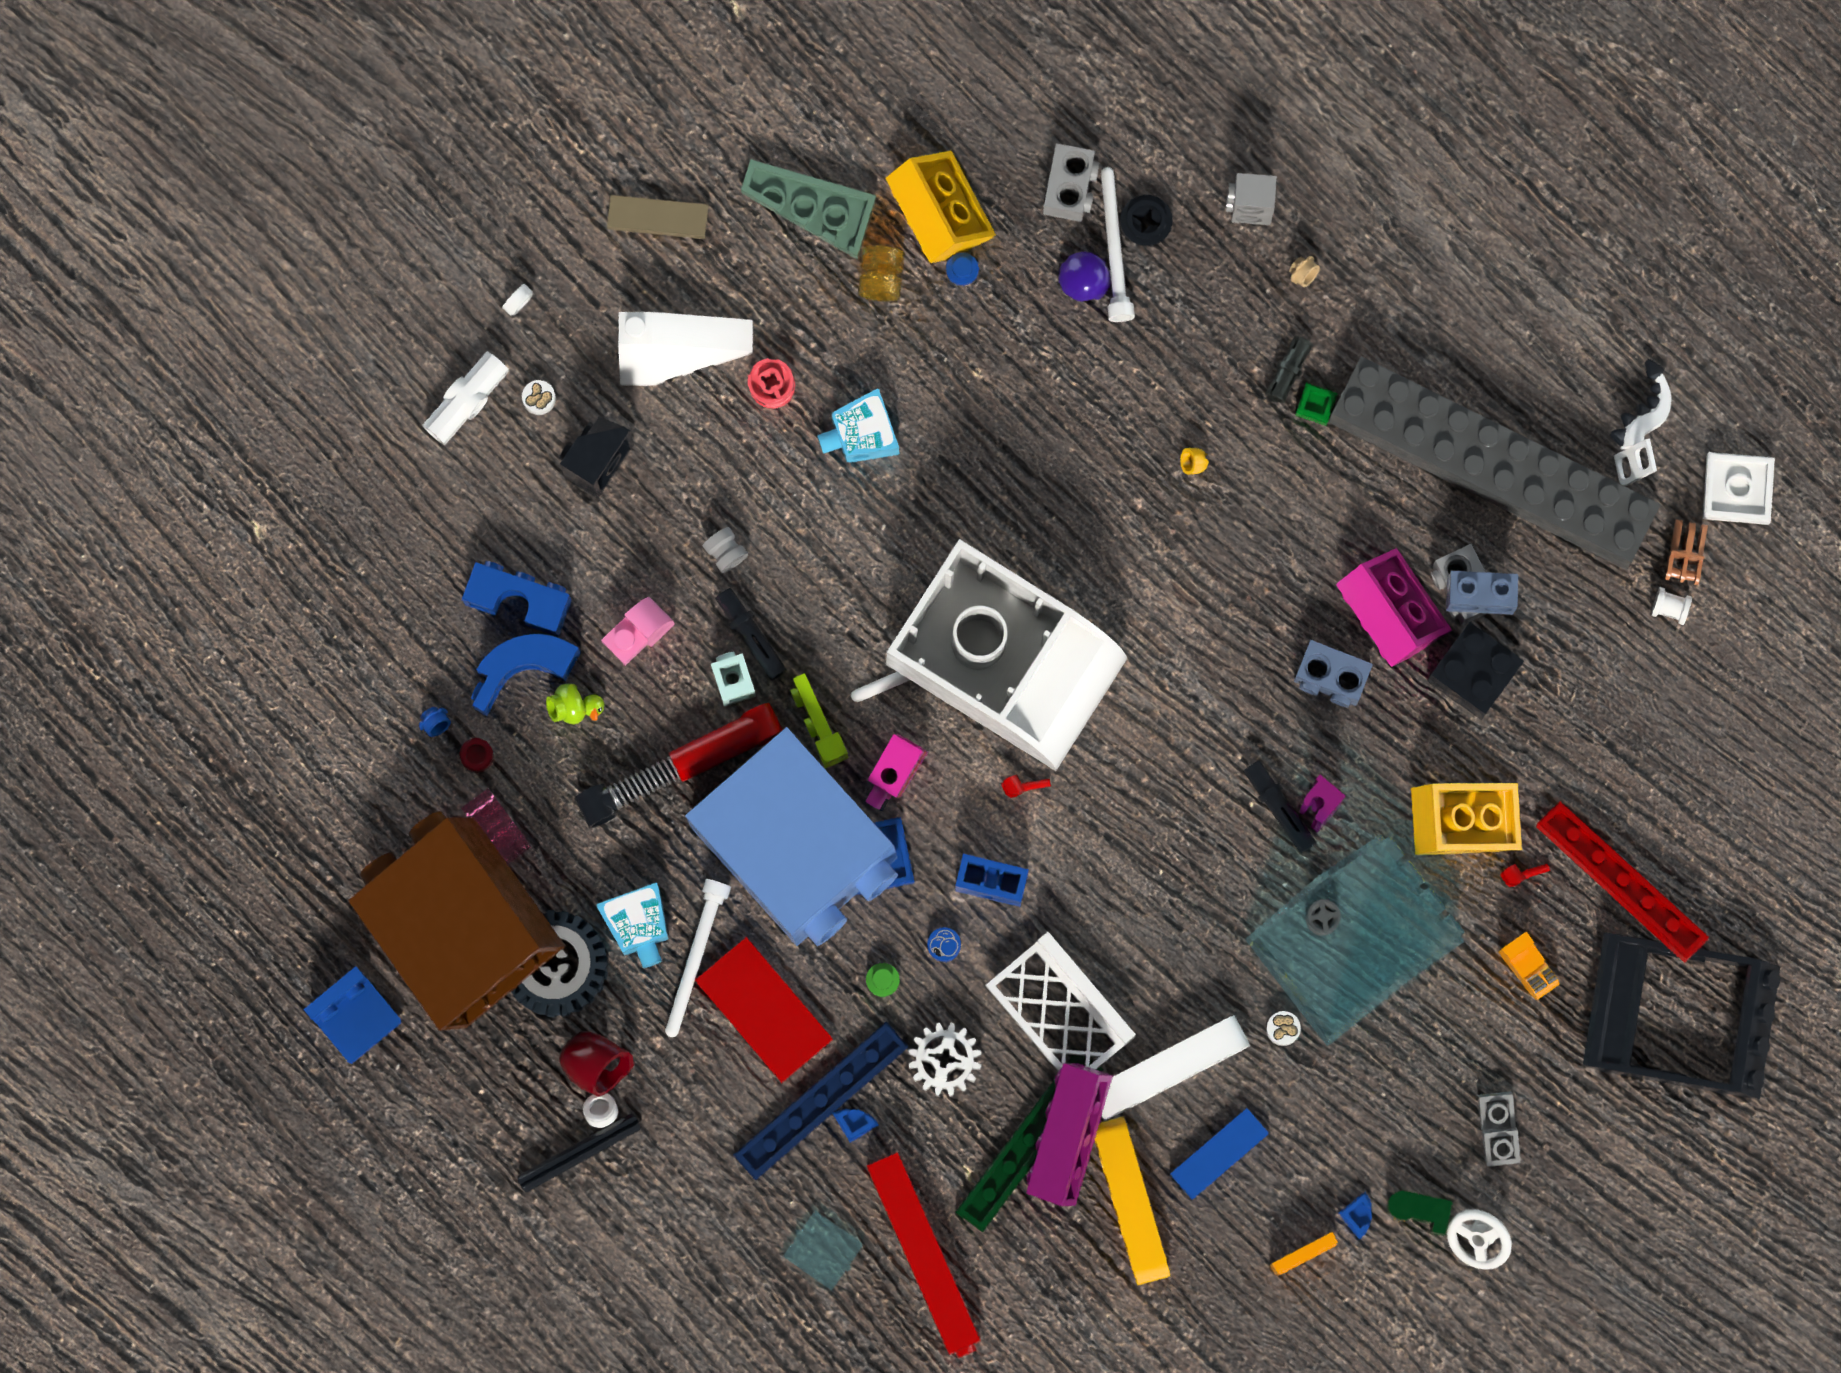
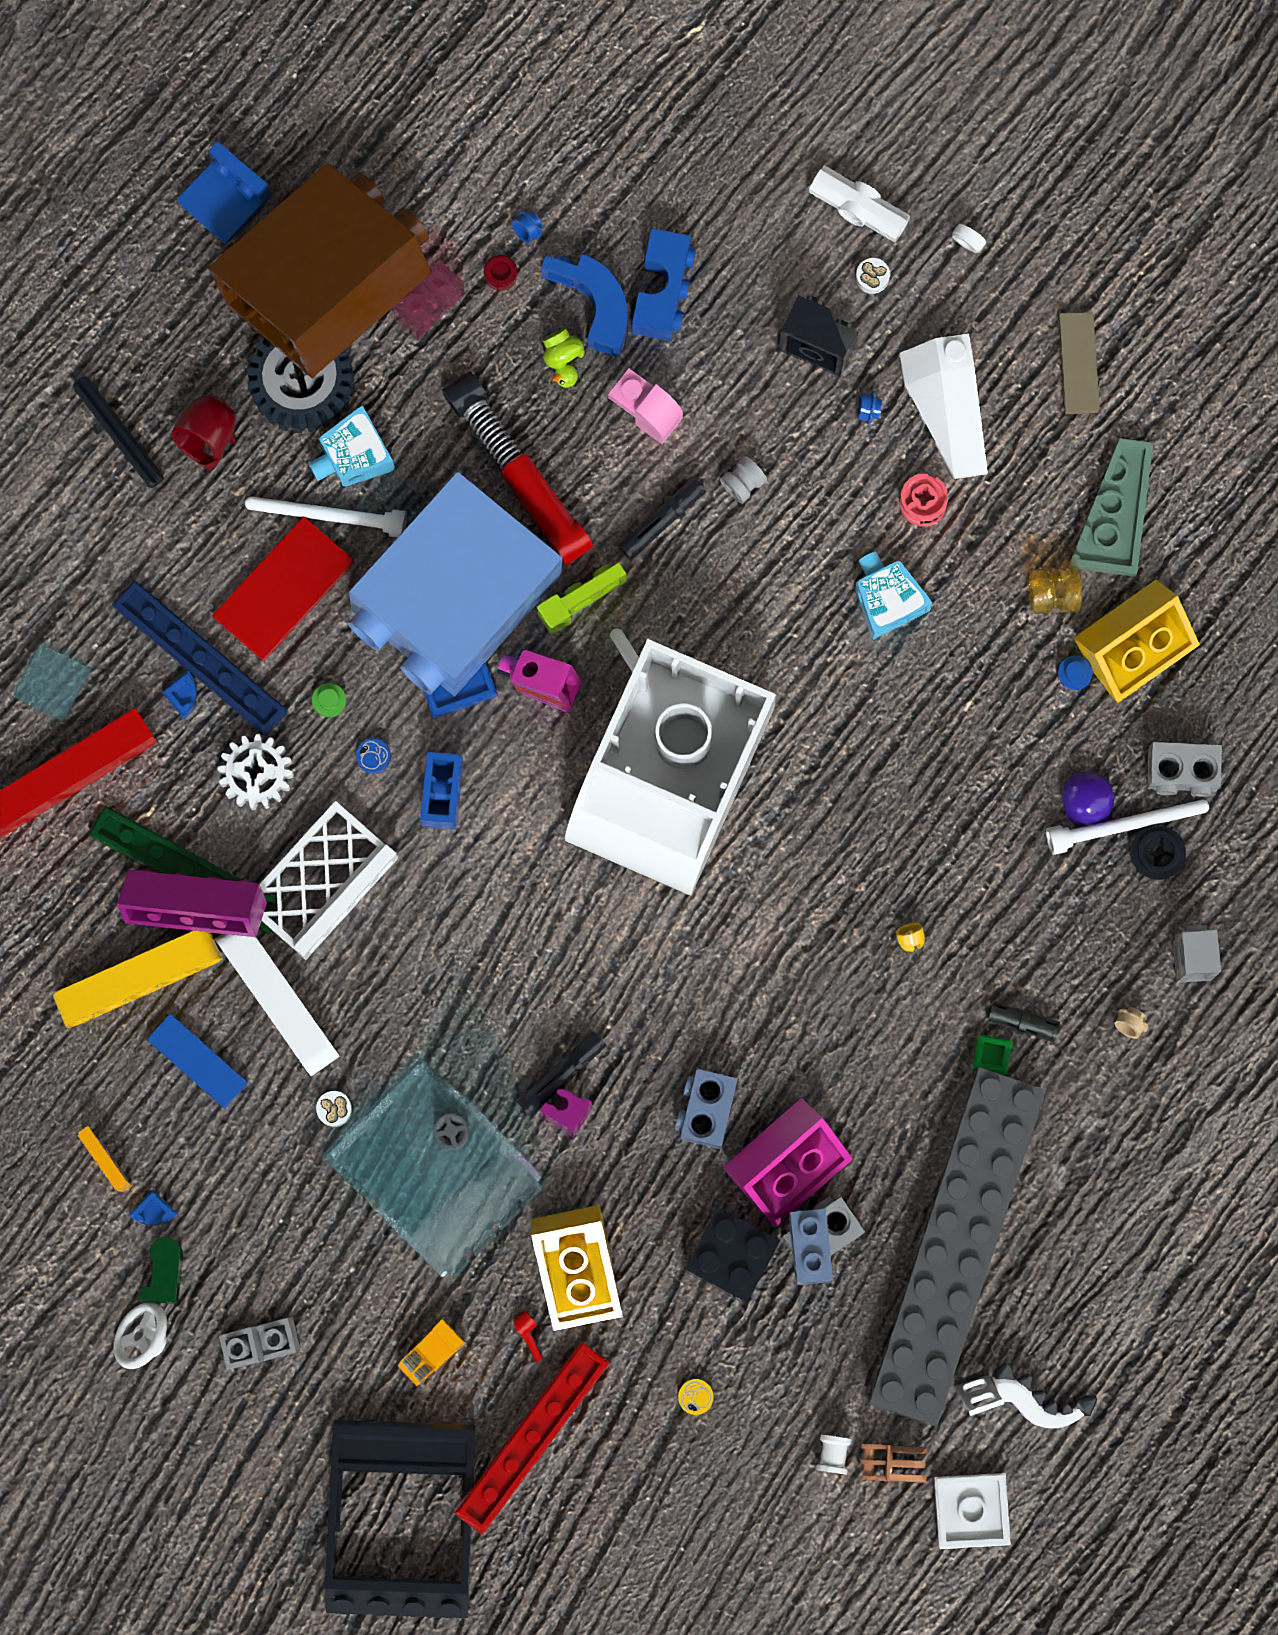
camera: 80 degrees right, 0 degrees up
(600, 1110) = (160, 445): white tile -> none
(671, 421) = (869, 407): none -> blue plate
(732, 693) = (614, 494): light aqua brick -> none
(1013, 787) = (543, 803): red hand -> none
(1601, 726) = (695, 1397): none -> yellow tile

